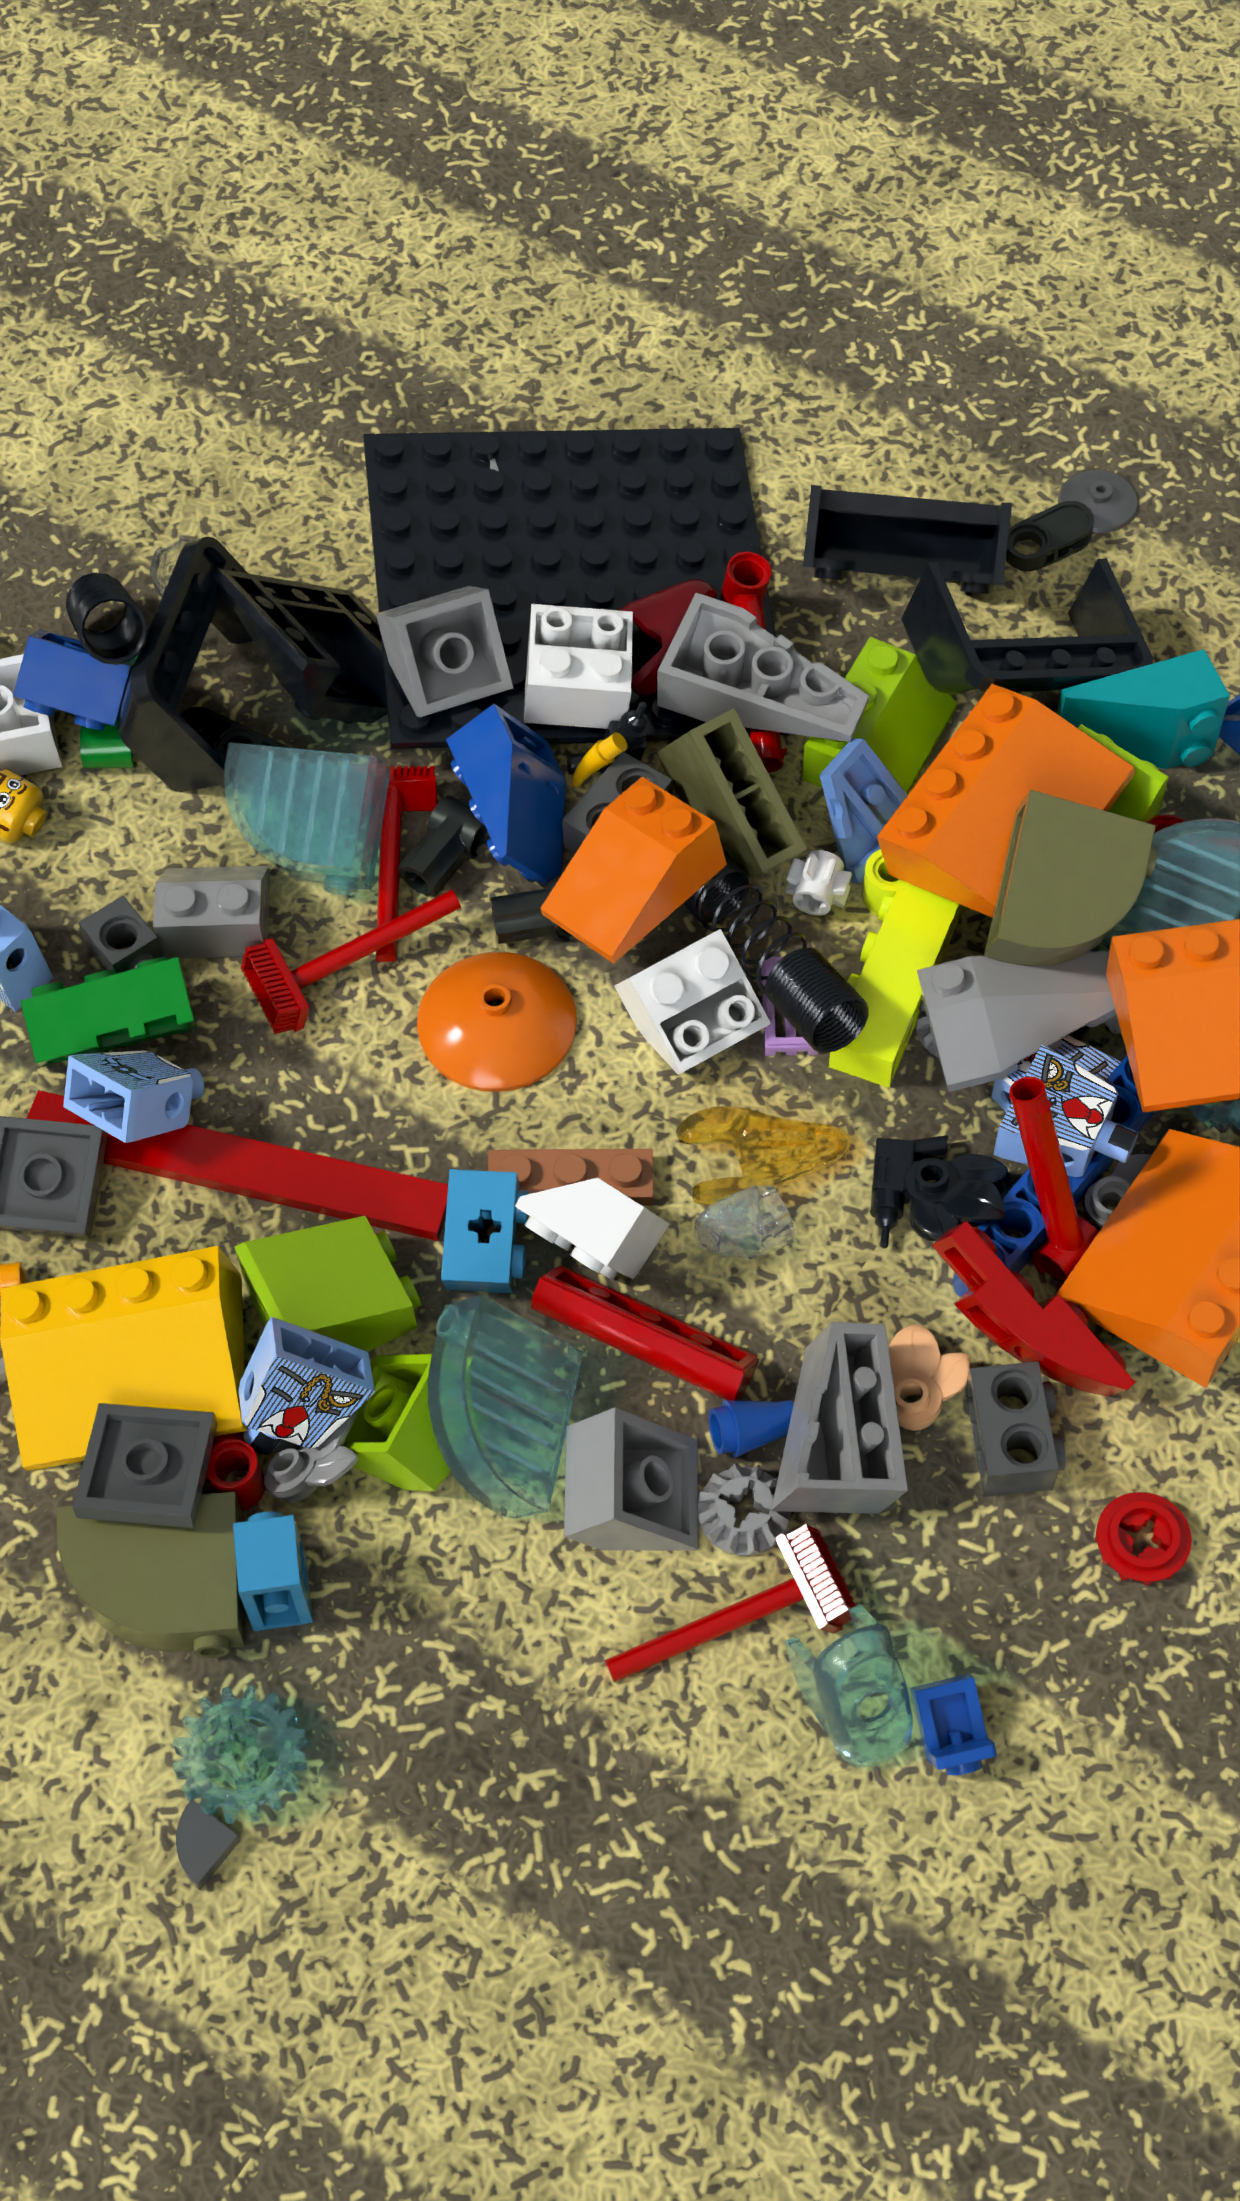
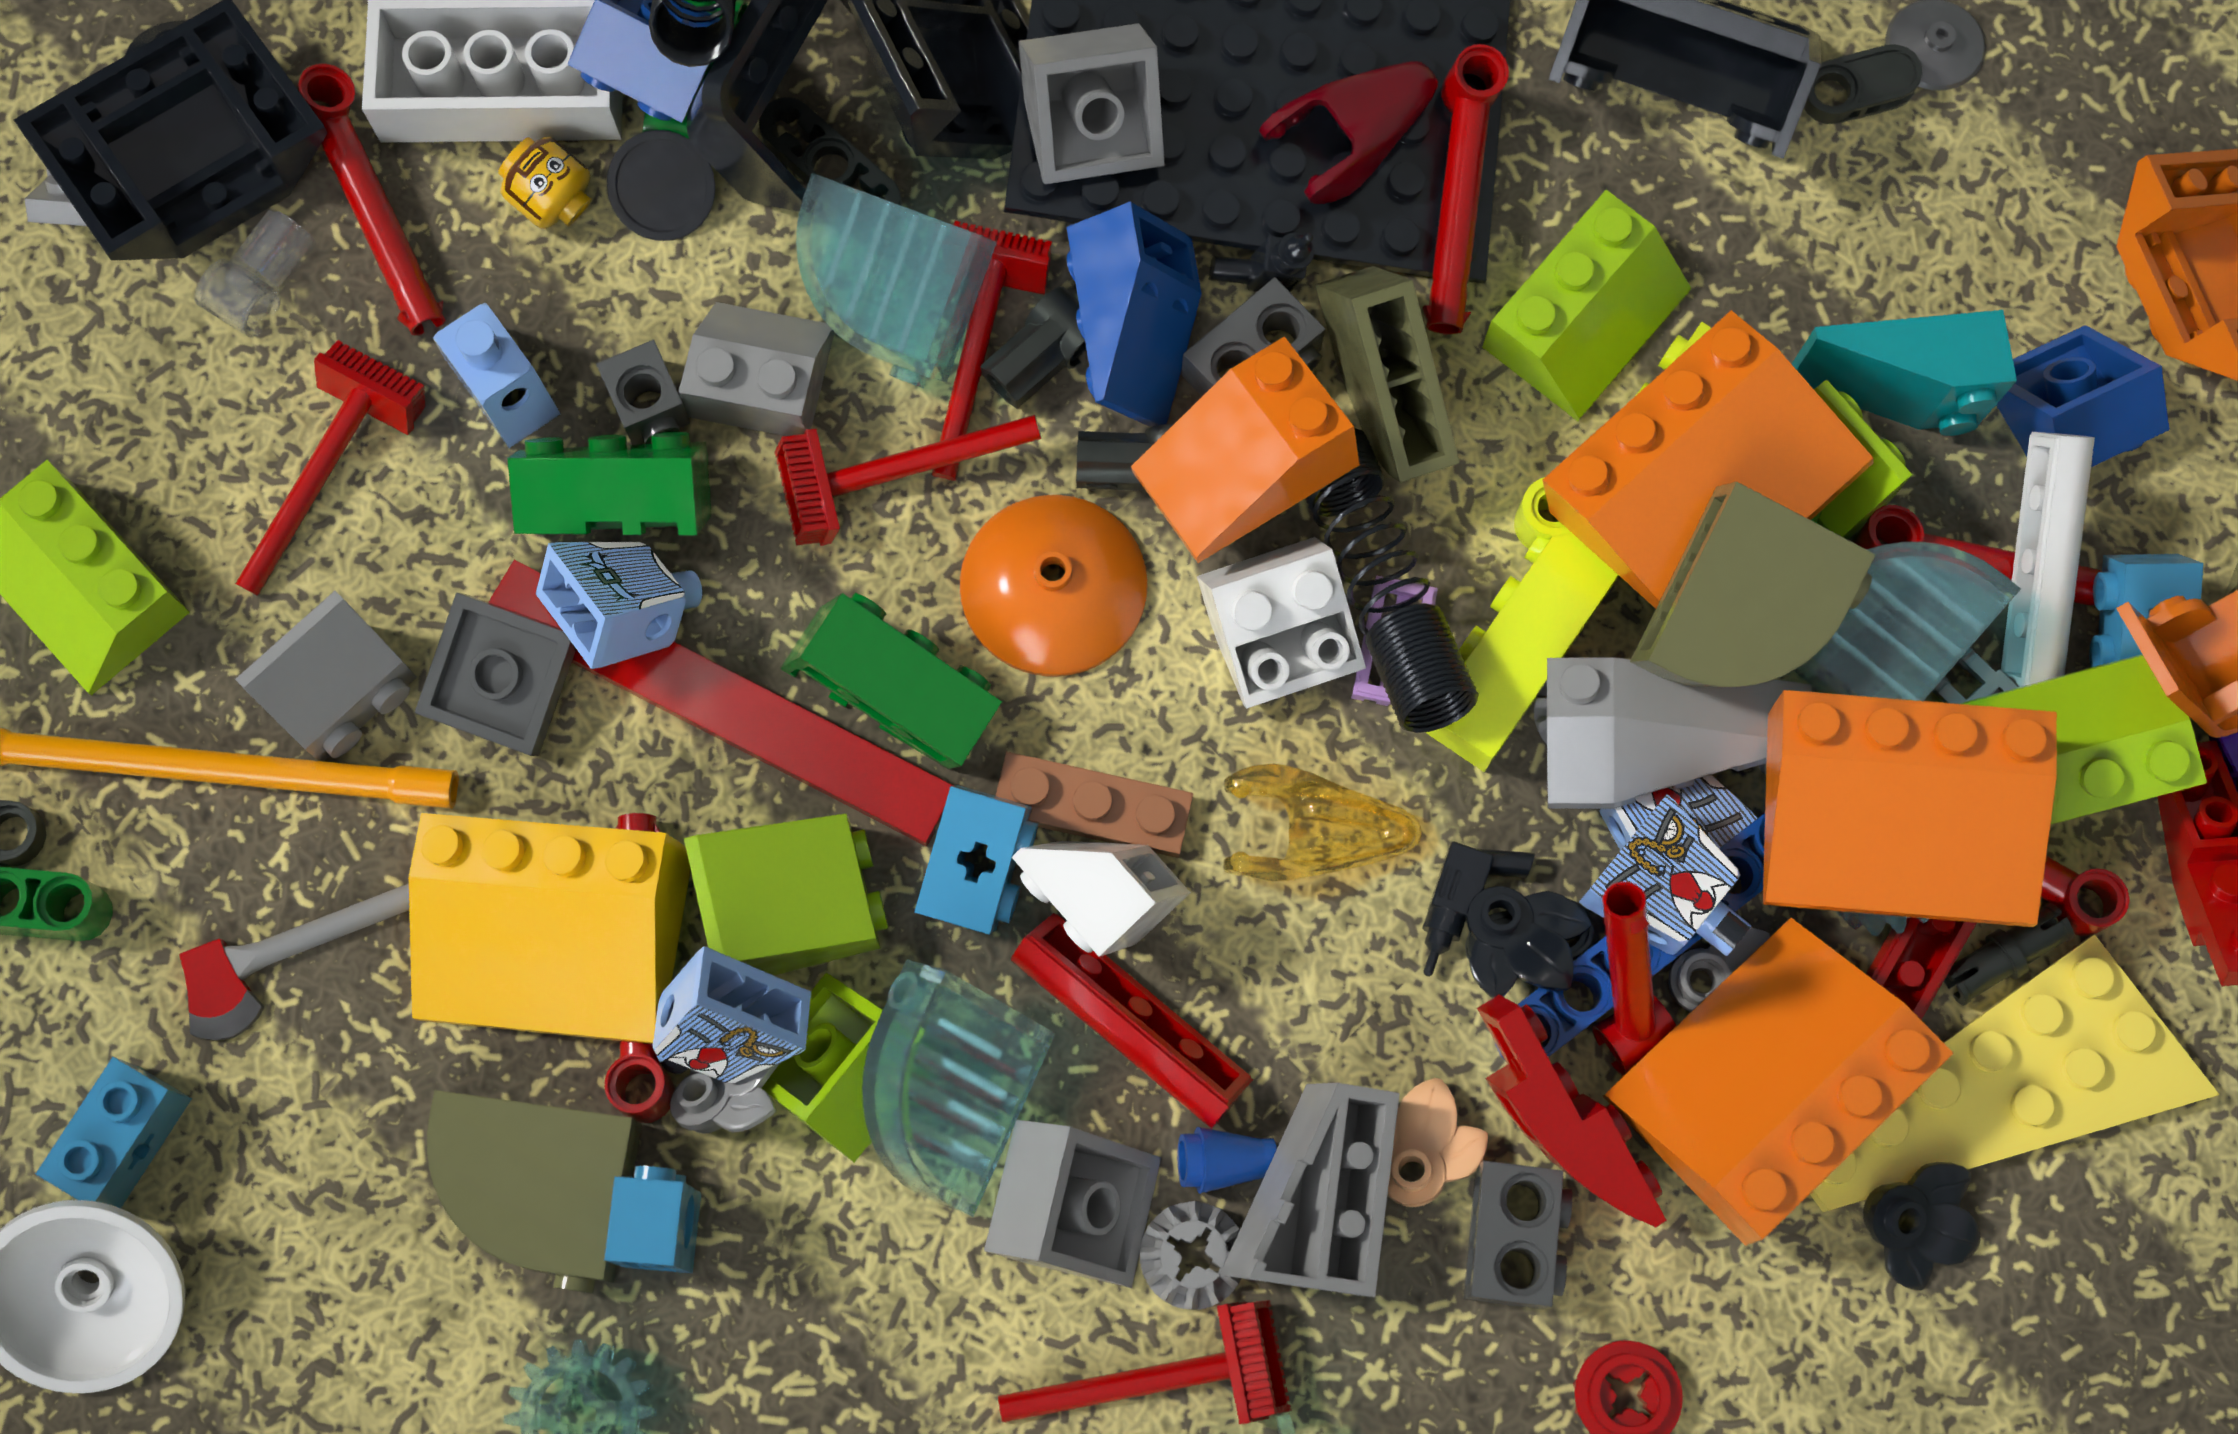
camera: 10 degrees right, 15 degrees up
(103, 789) = (660, 185): none -> black piece
(145, 1465) = (538, 1070): dark grey plate -> none
(381, 1109) = (894, 679): none -> green wedge
(578, 666) = (1246, 158): white slope -> none
(598, 757) = (1247, 278): yellow helmet -> none
(732, 662) = (1443, 217): light grey wedge -> none
(745, 1224) = (1275, 916): clear rock -> none
(818, 882) = (1465, 497): white gear -> none
(859, 802) = (1541, 414): medium blue wing -> none
(954, 664) = (1856, 283): black windscreen -> none

